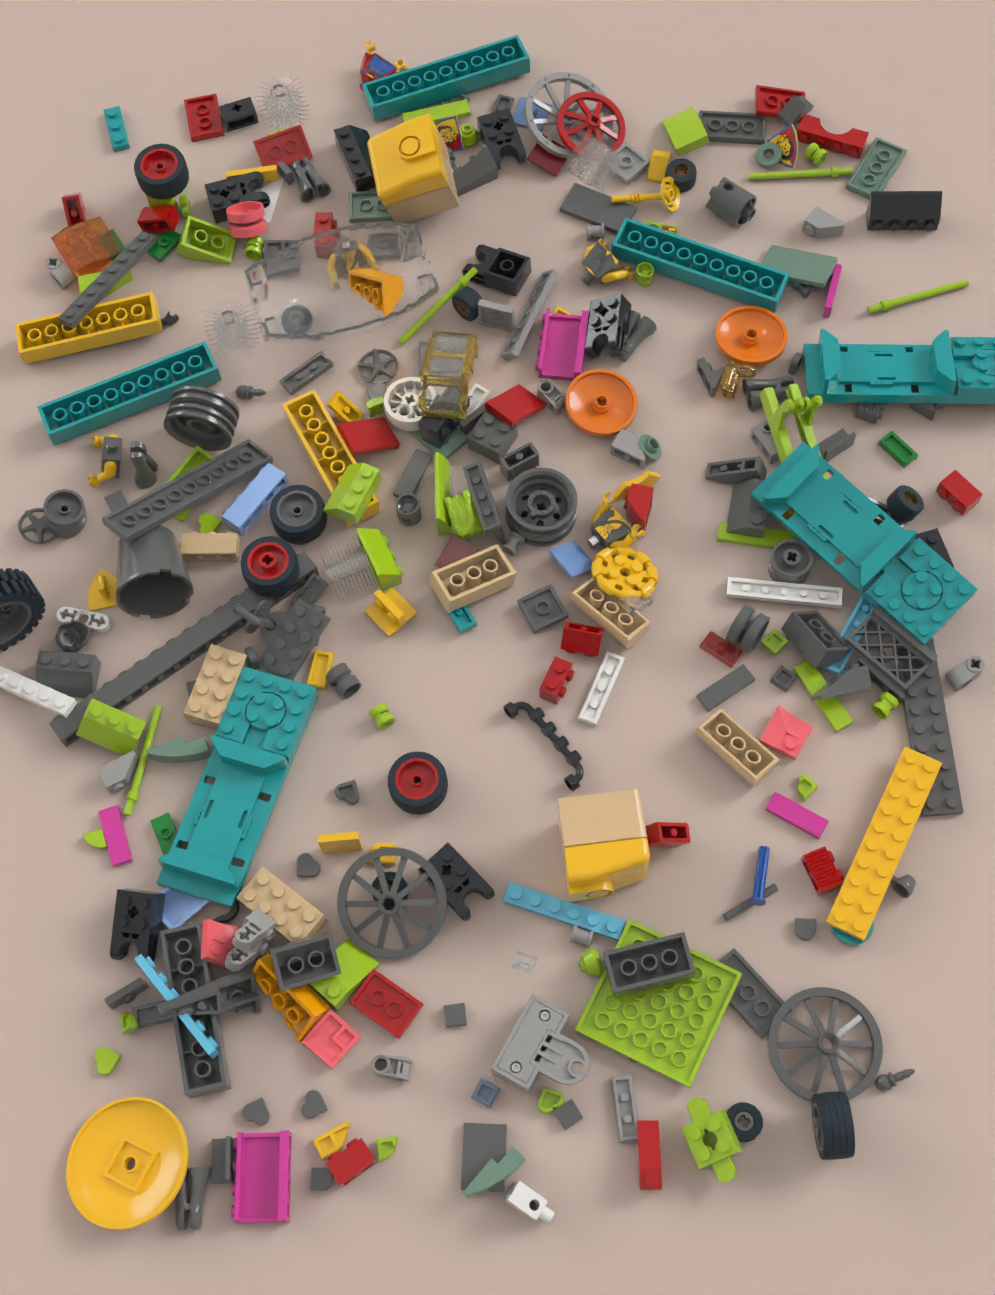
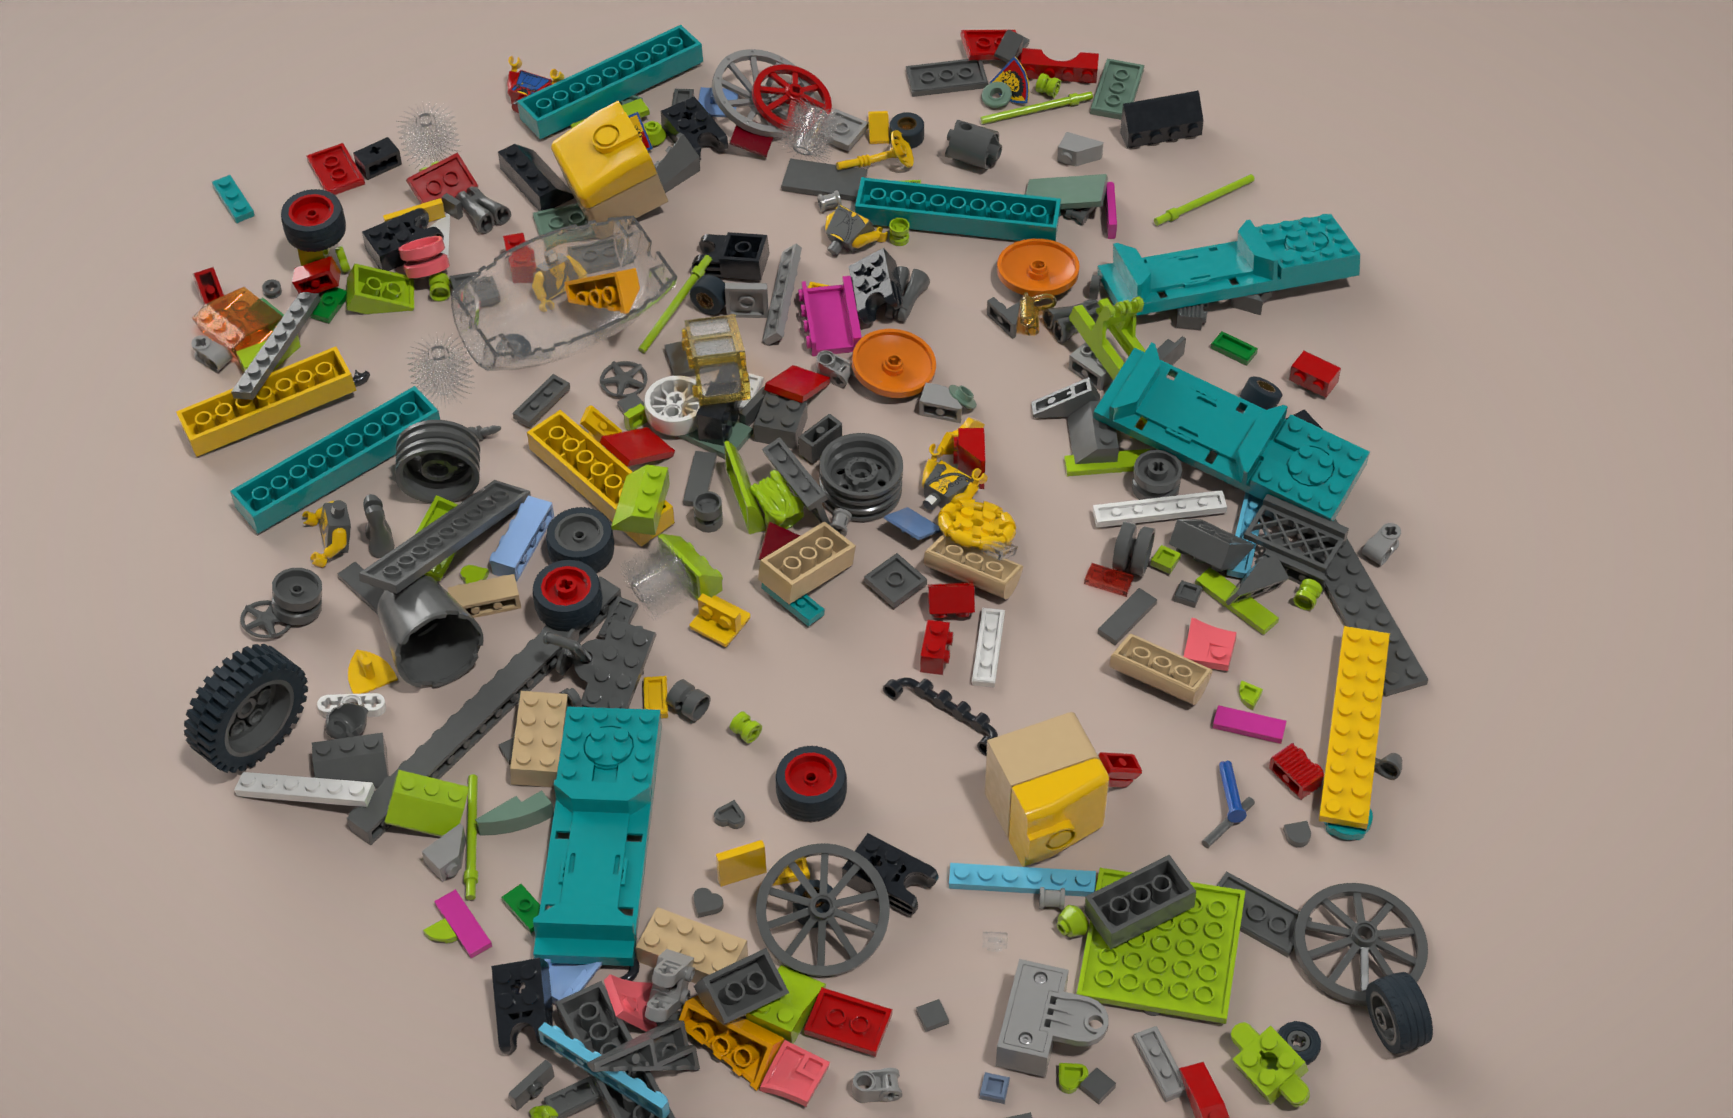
camera: 20 degrees left, 15 degrees down
(121, 217) = (267, 285): none -> dark grey bush
(686, 131) = (899, 87): lime slope -> none
(885, 1082) = (1439, 966): dark grey bar -> none

